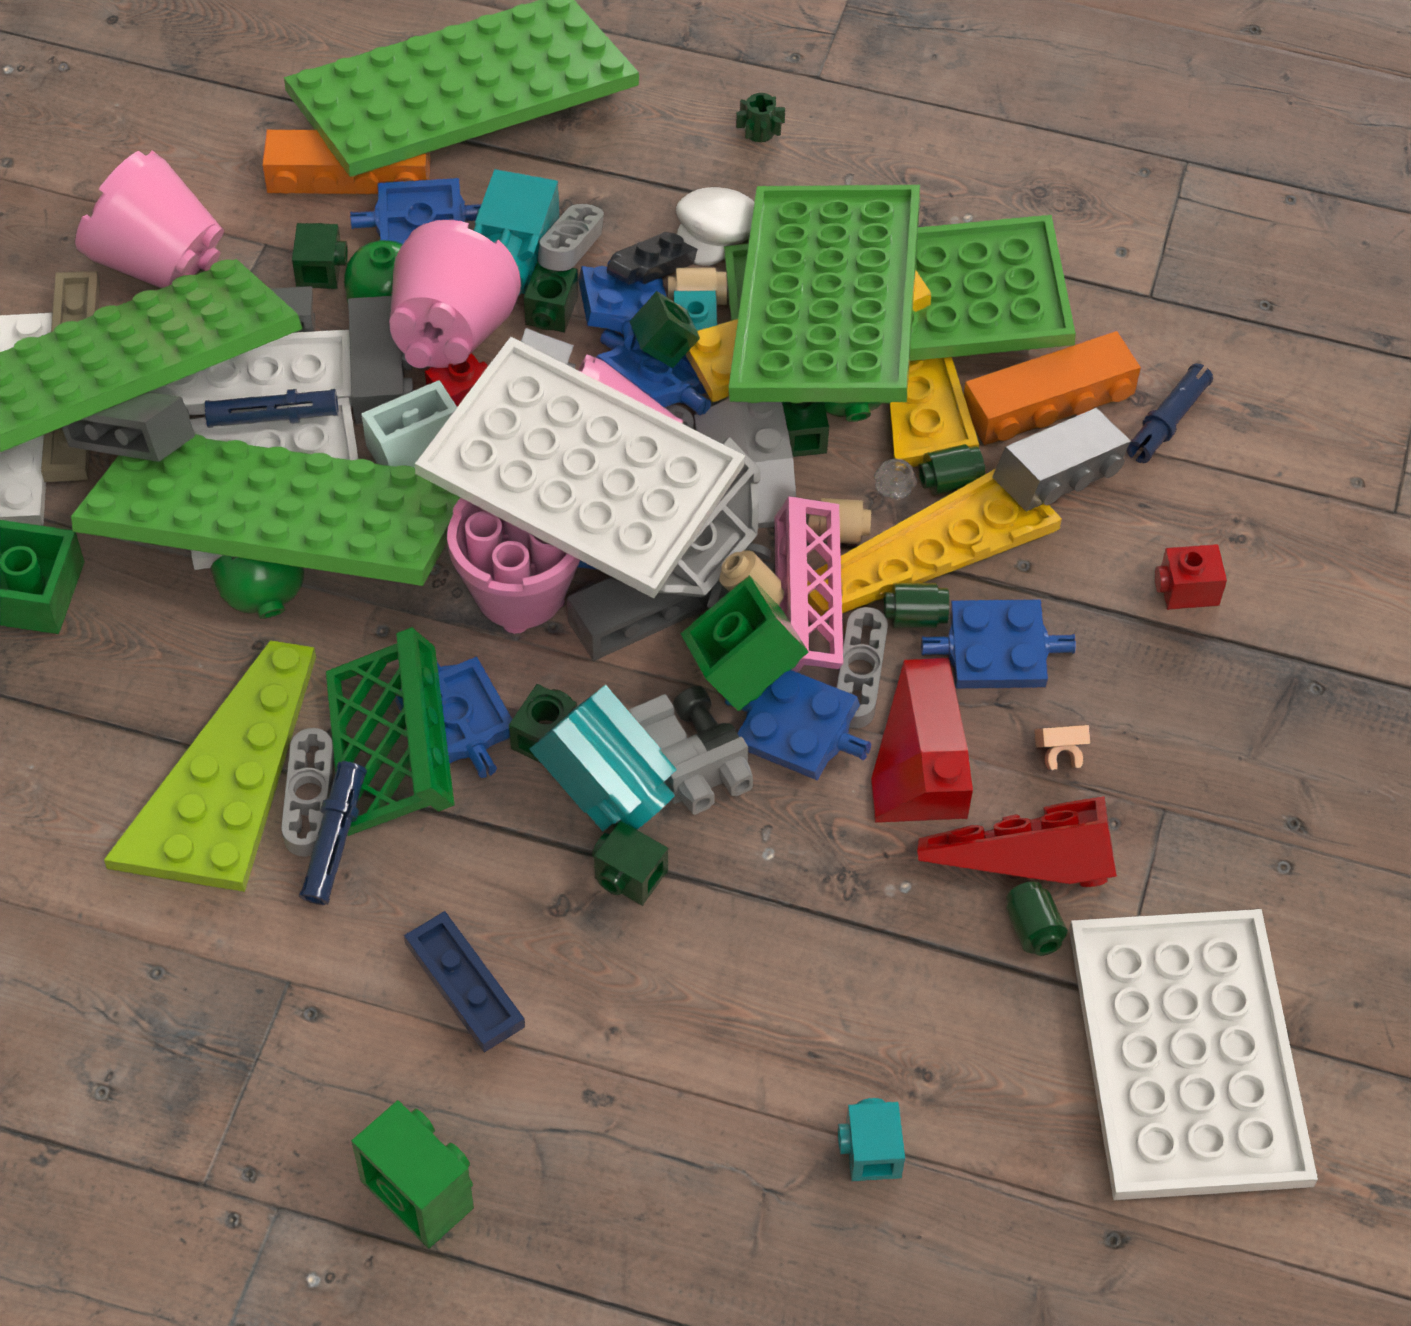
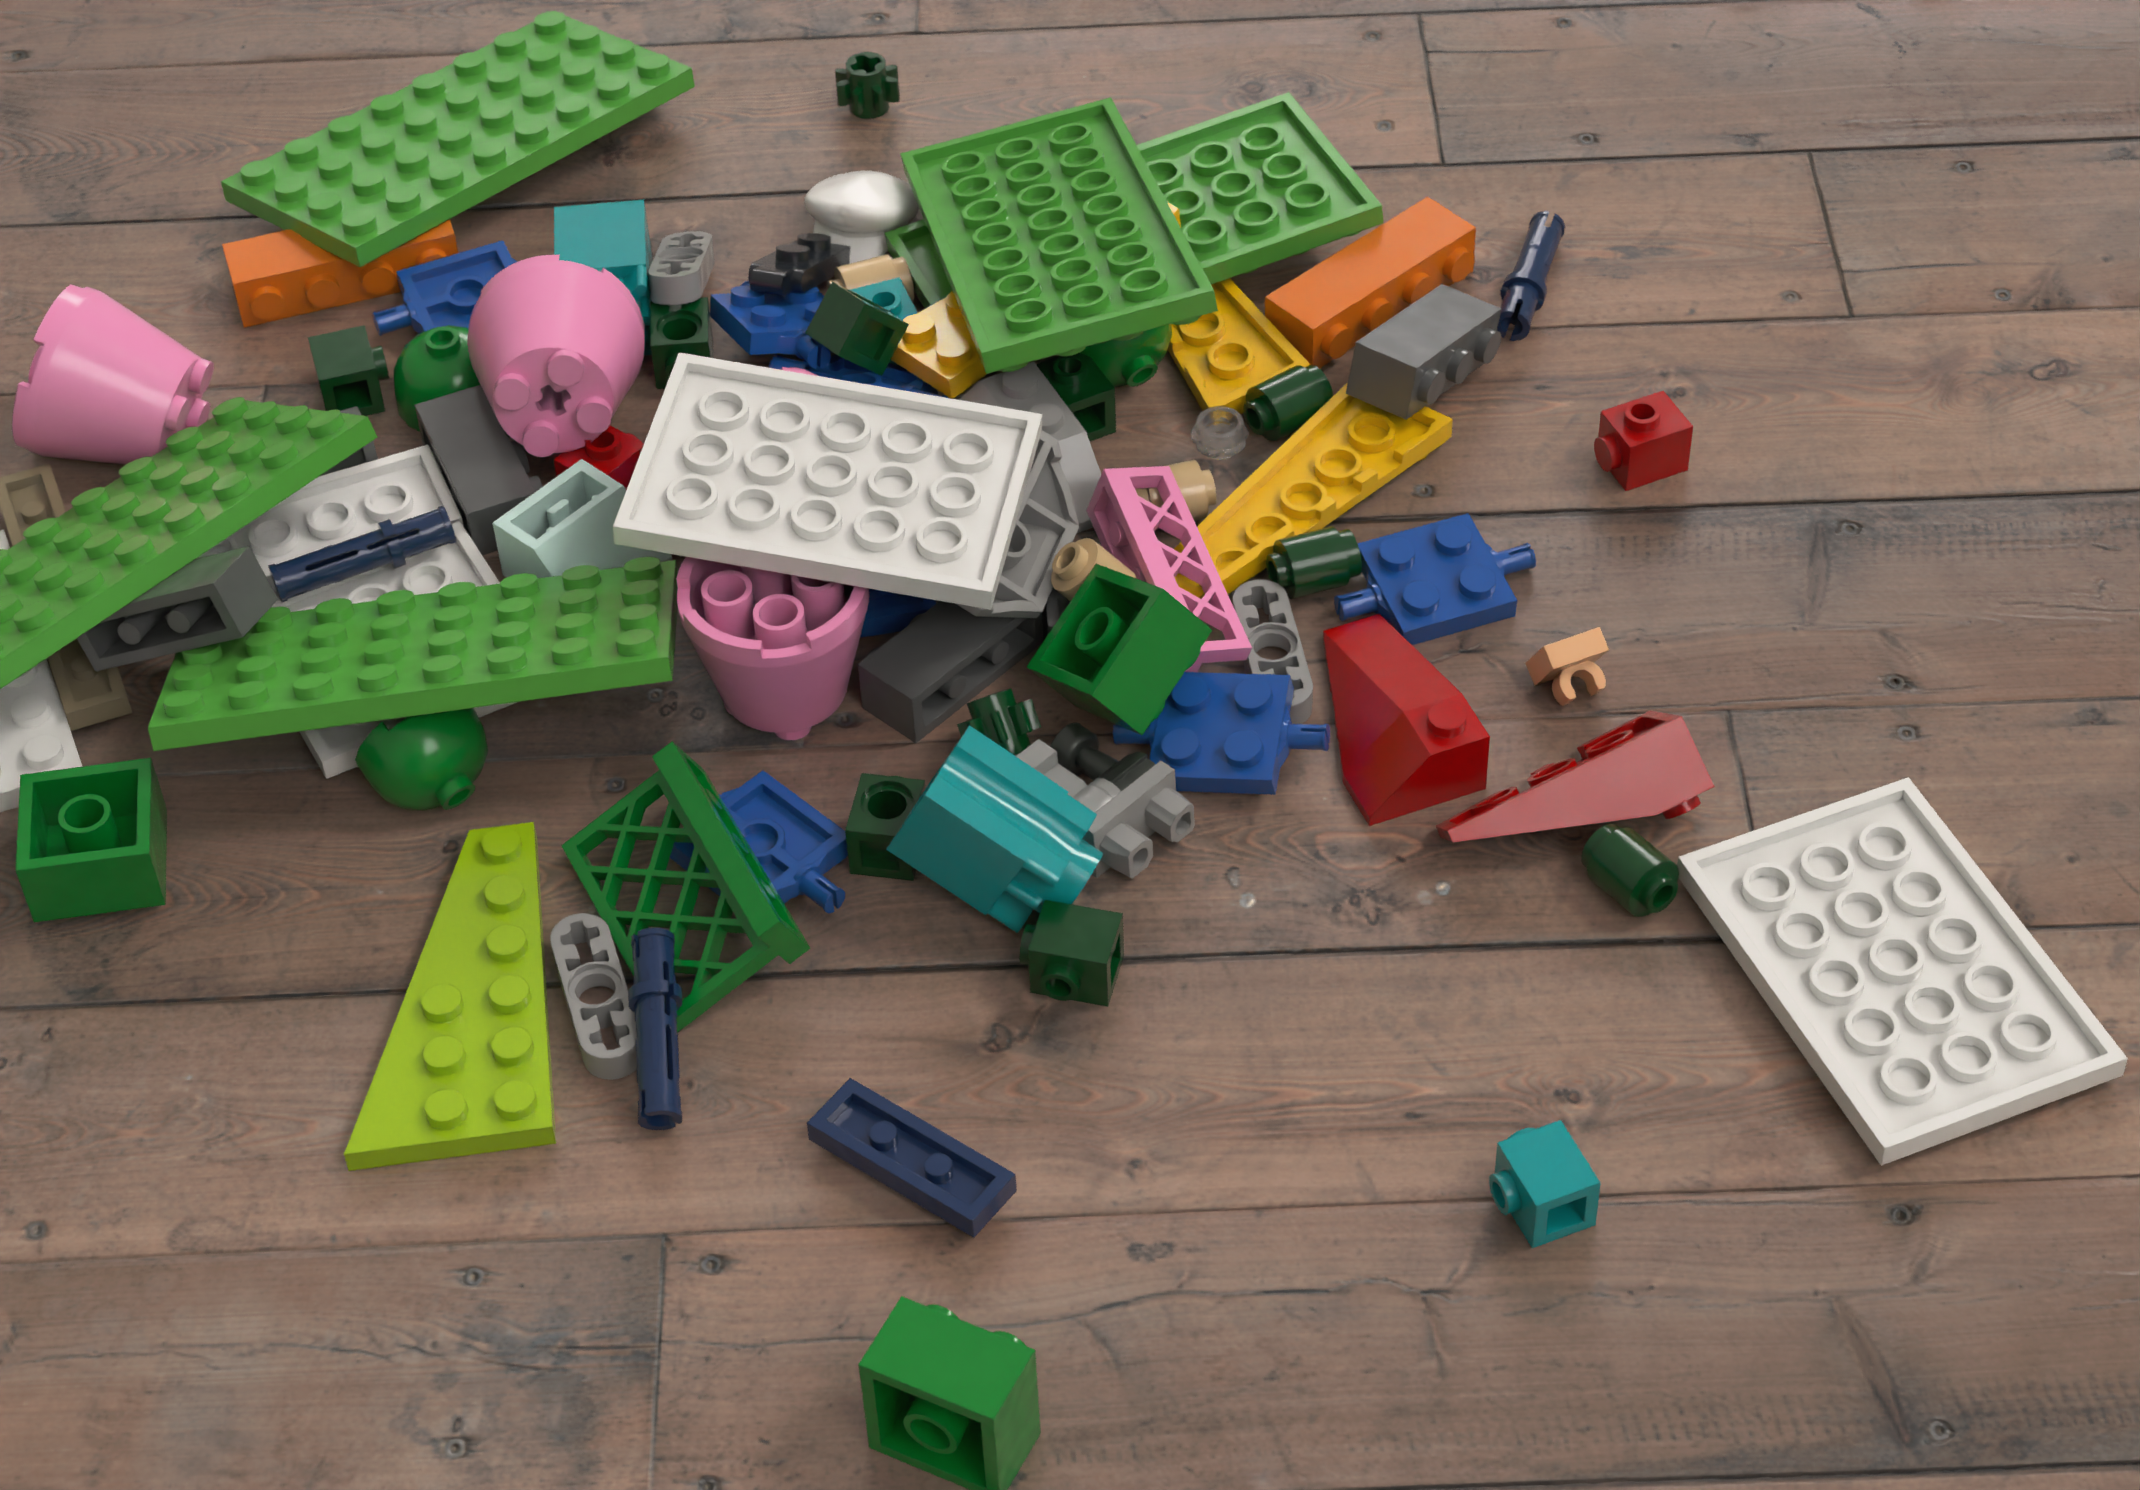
camera: 15 degrees left, 10 degrees down
(647, 671) = (1003, 720): none -> dark green gear

